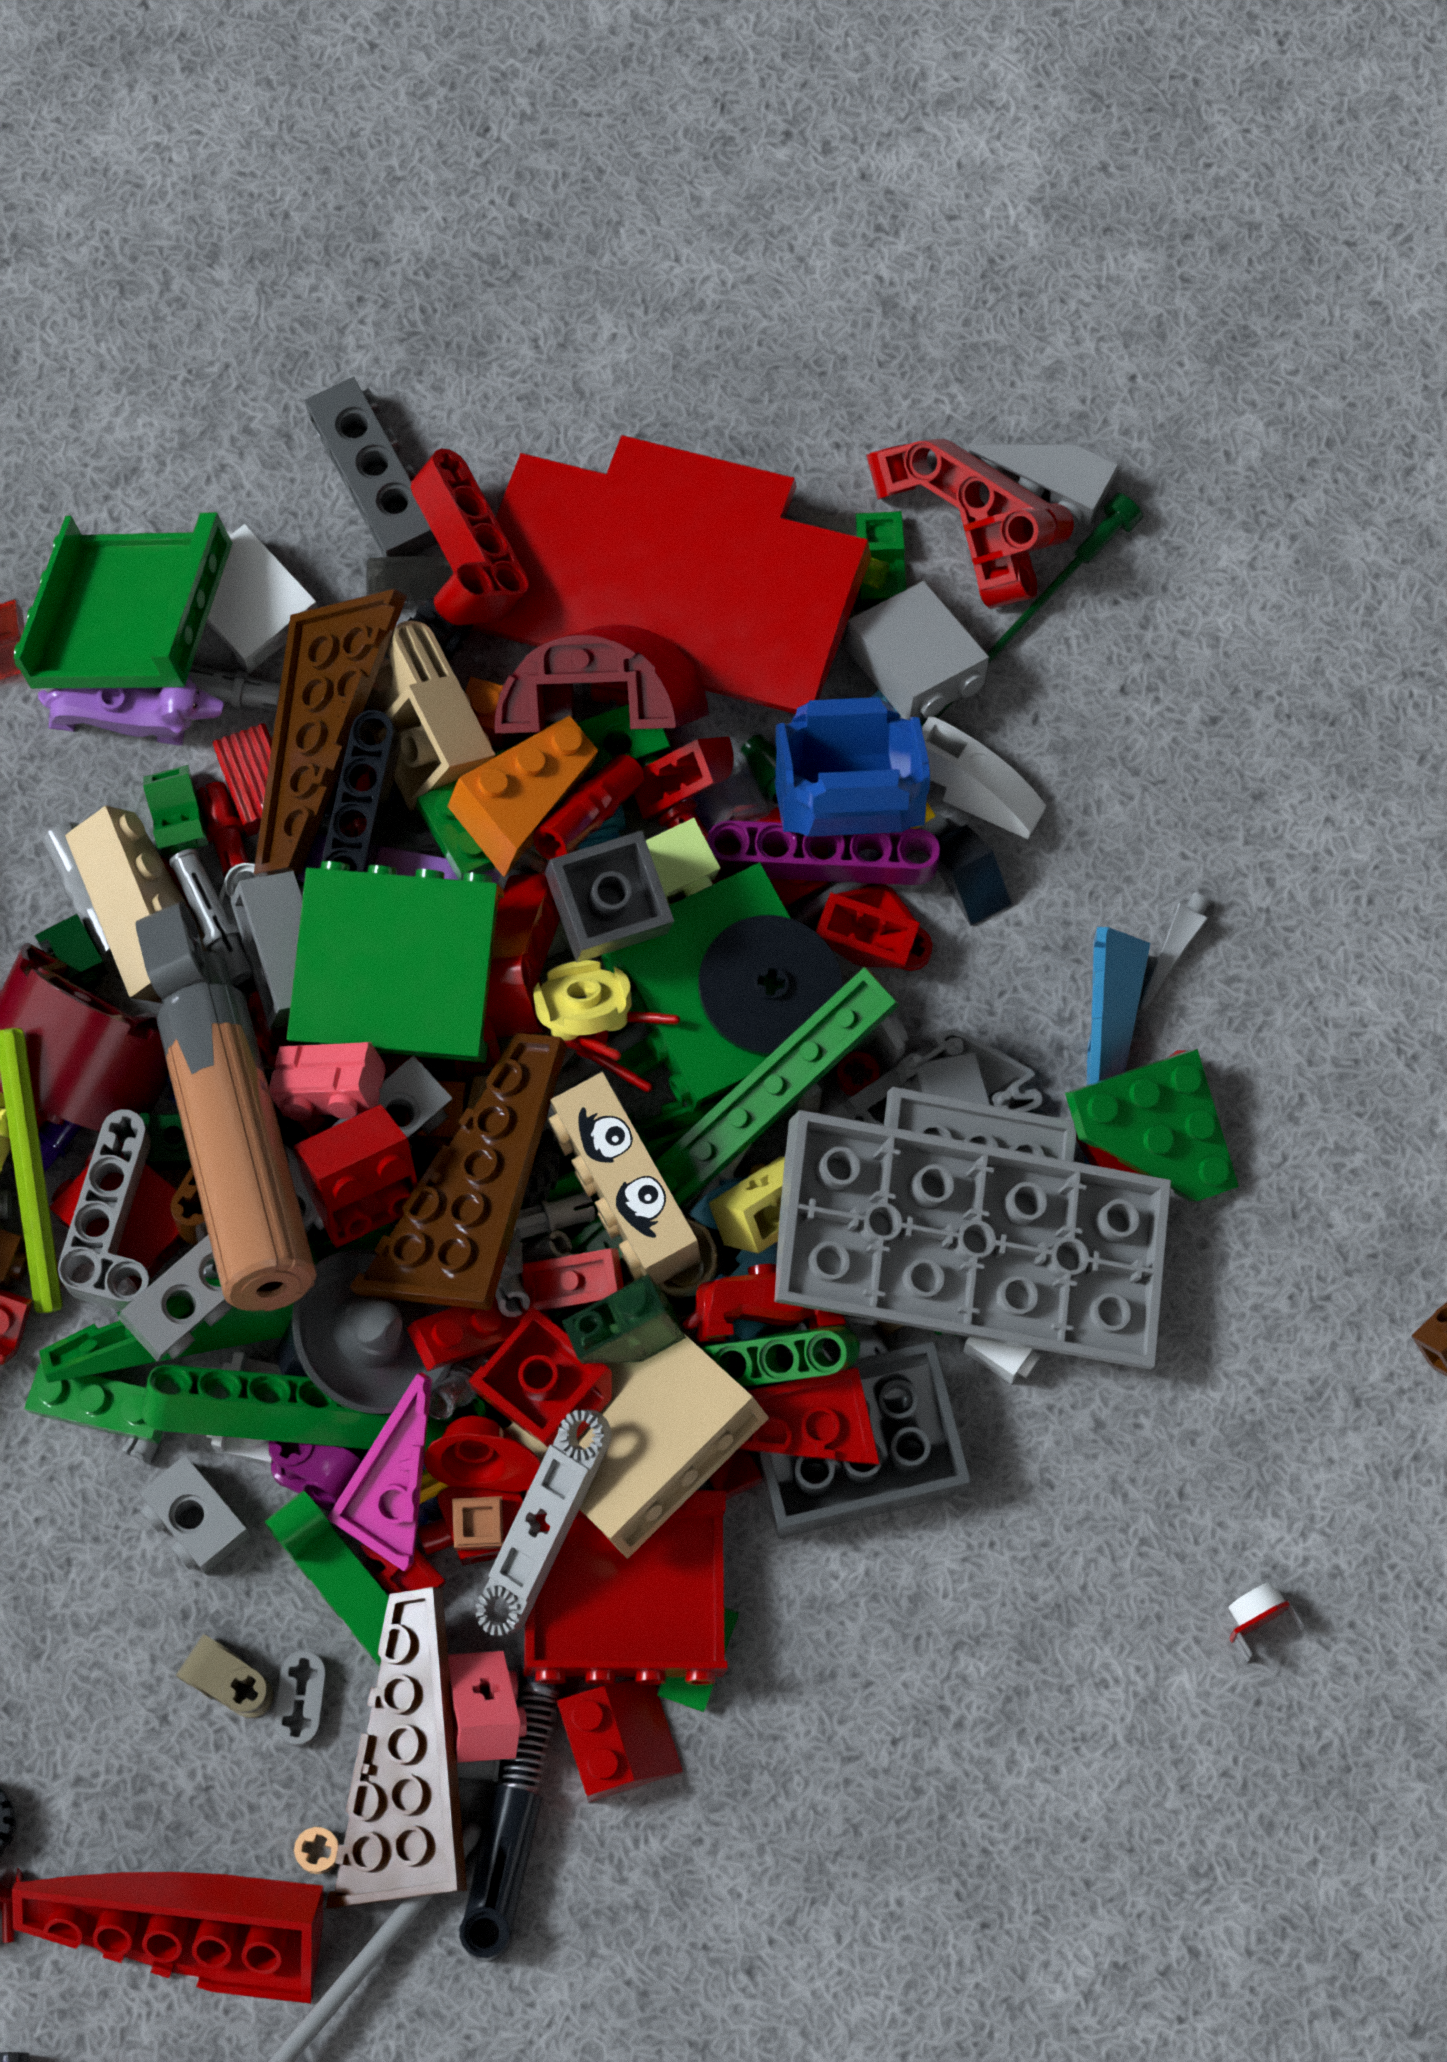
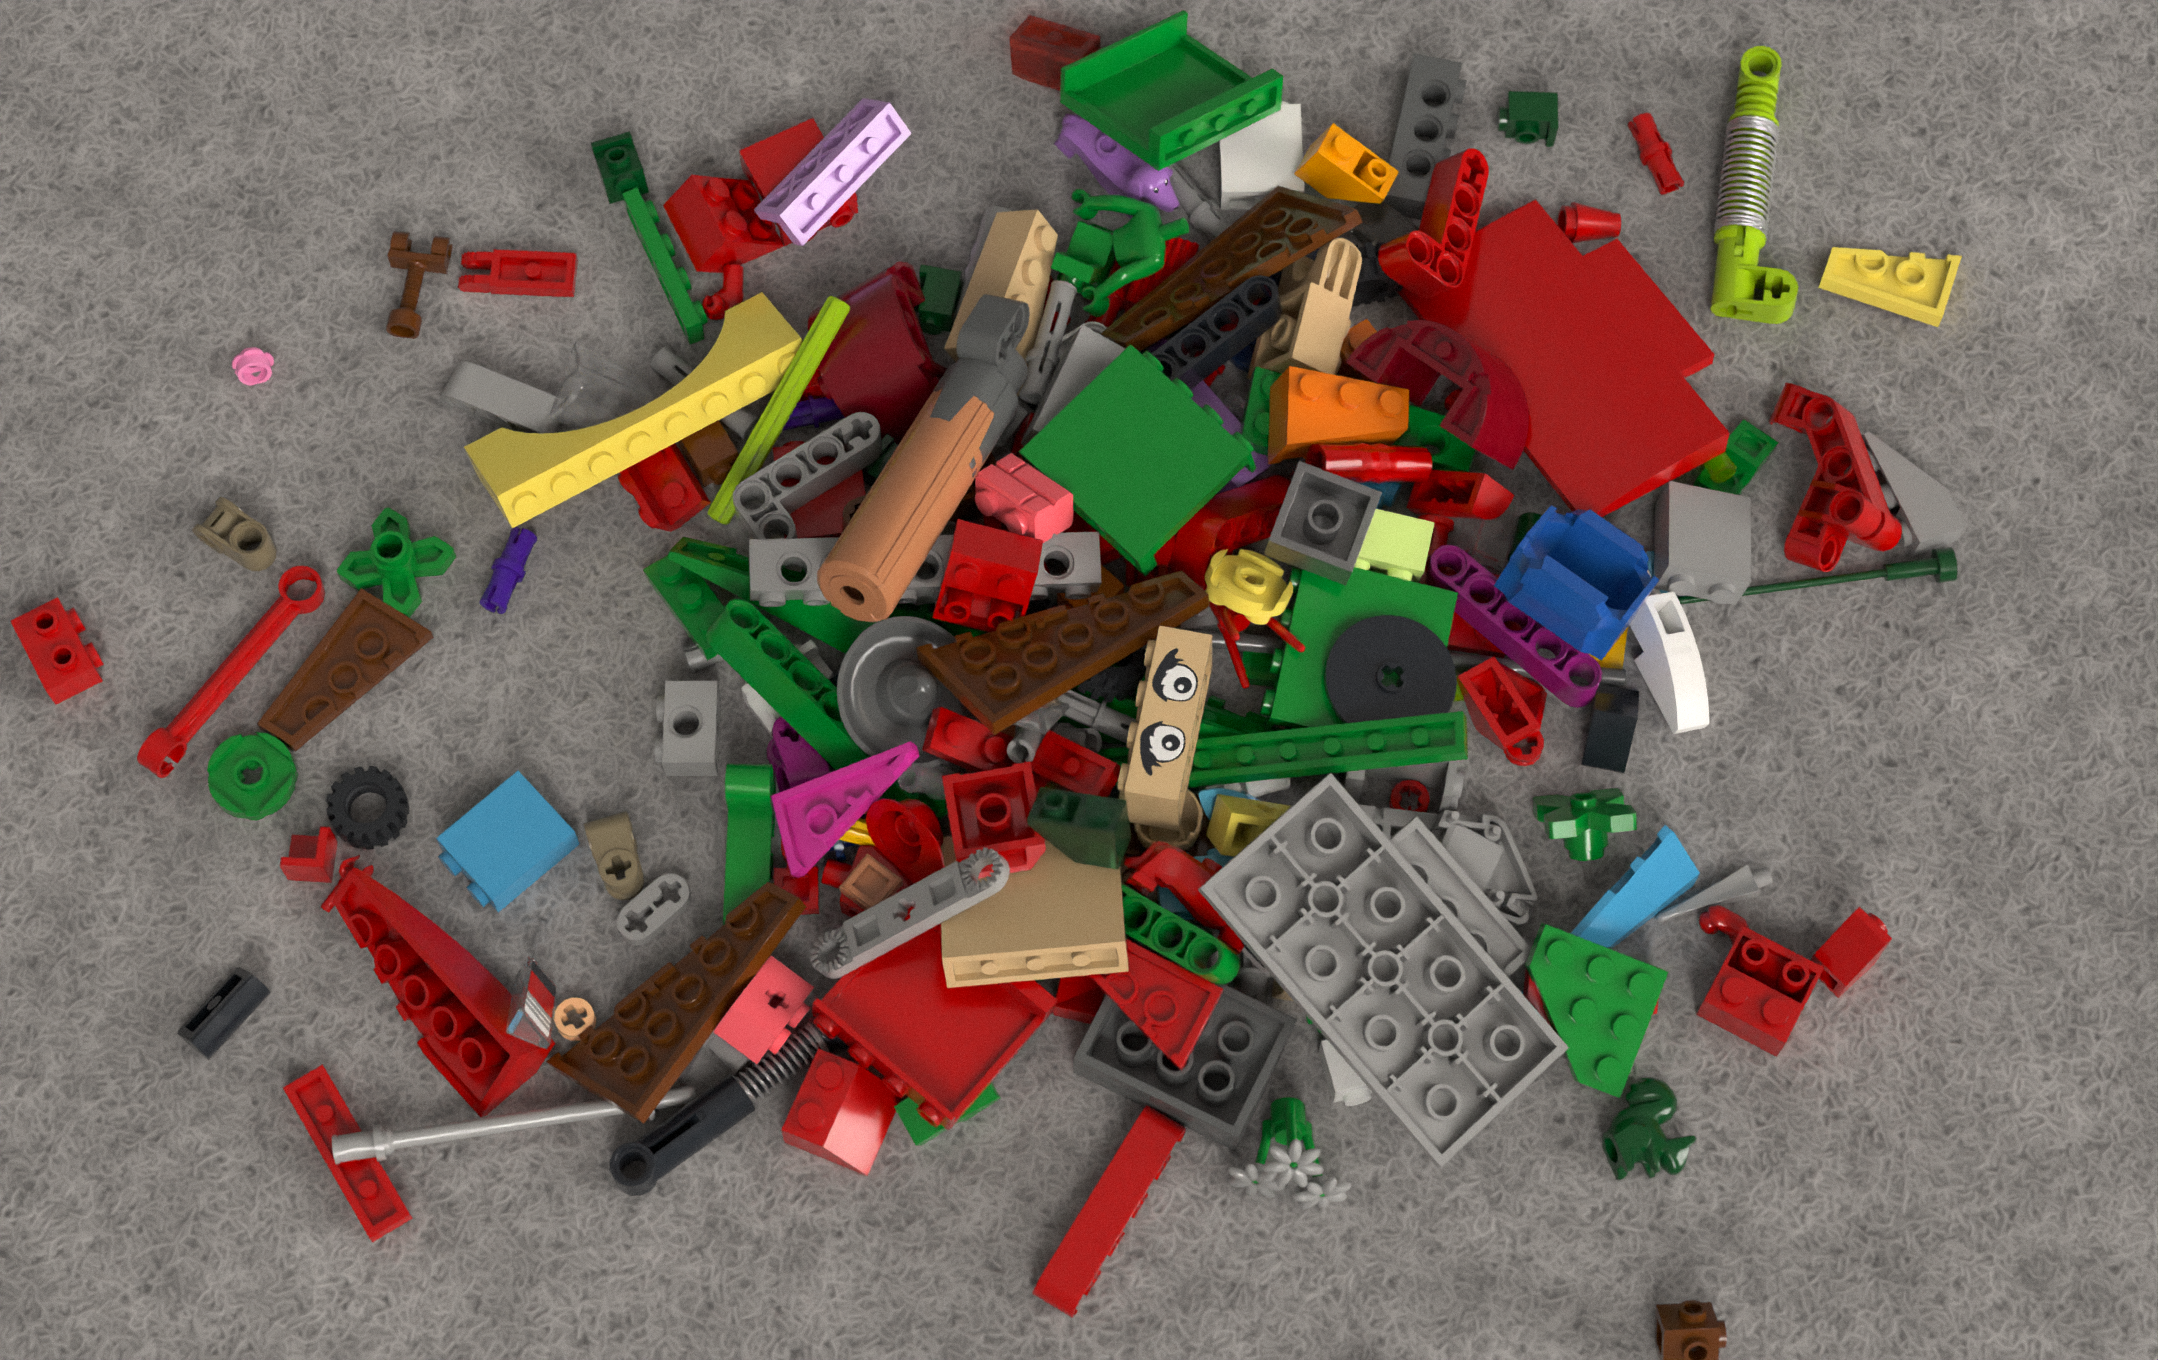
camera: 40 degrees right, 5 degrees down
(121, 1749) = (506, 842): none -> dark azure brick
(214, 764) = (1137, 244): none -> green piece
(275, 1871) = (532, 1005): none -> slope
(337, 554) = (1345, 168): none -> light orange slope
(451, 380) = (1529, 117): none -> dark green brick
(579, 439) = (1588, 223): none -> red cone
(584, 329) = (1655, 153): none -> red pin
(714, 340) = (1741, 228): none -> lime piece
(883, 290) = (1901, 285): none -> light yellow wing
(911, 1630) = (1108, 1210): none -> red beam
(996, 1436) = (1288, 1127): none -> light grey plant
(1019, 972) = (1585, 820): none -> green plant
(1207, 964) = (1722, 919): none -> red arm
(1278, 1003) = (1760, 991): none -> red slope
(1279, 1206) = (1637, 1134): none -> dark green animal
(1323, 911) = (1851, 950): none -> red slope

